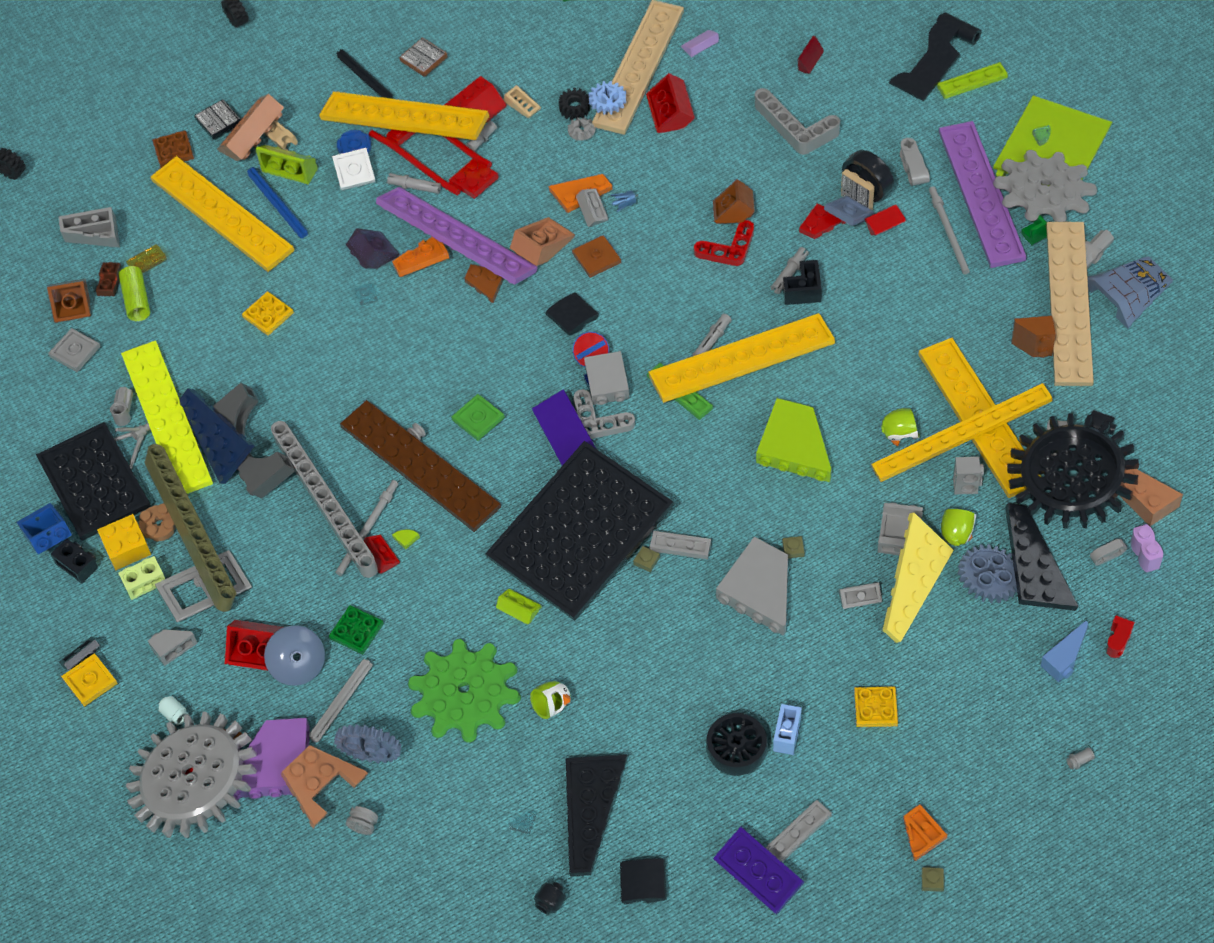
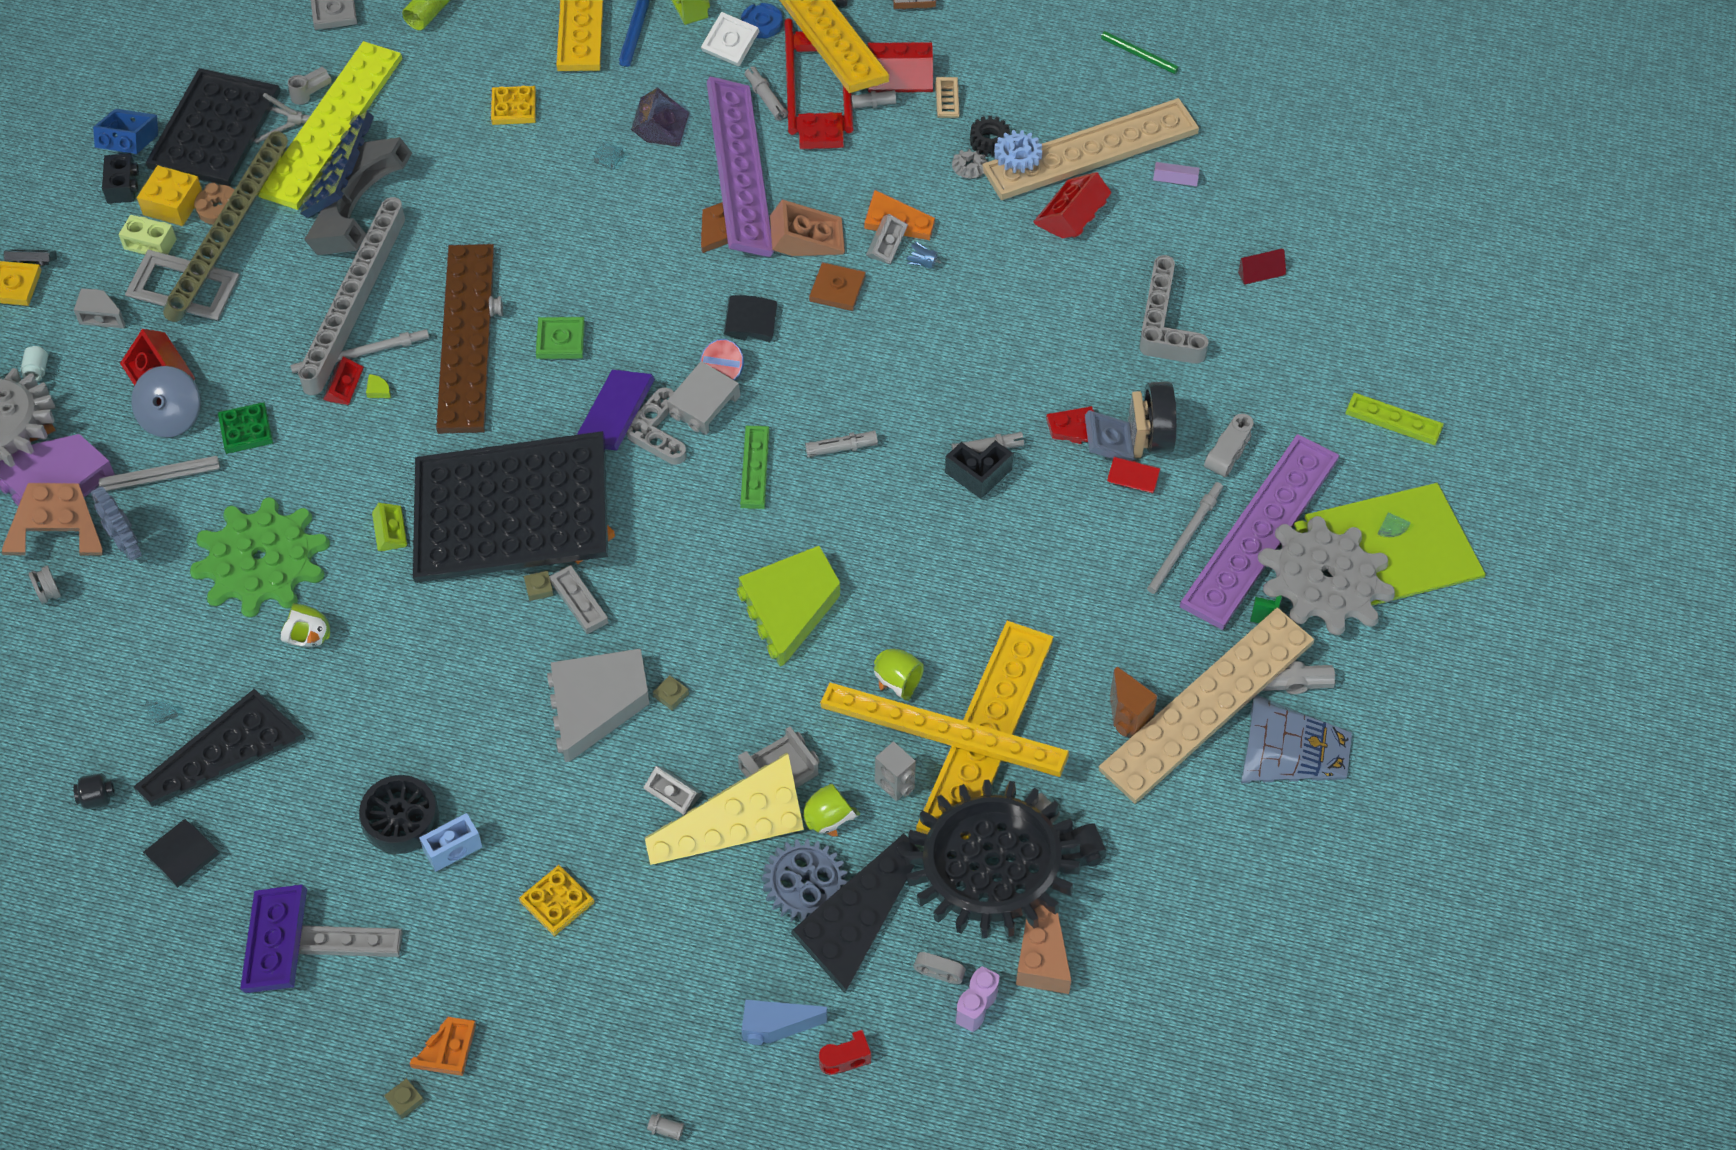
camera: 40 degrees right, 0 degrees up
(424, 255) = (691, 162): orange wing -> none
(734, 204) = (1012, 342): dark orange slope -> none
(734, 249) = (964, 384): red beam -> none
(741, 357) = (842, 484): yellow plate -> none
(938, 57) = (1386, 368): black door -> none

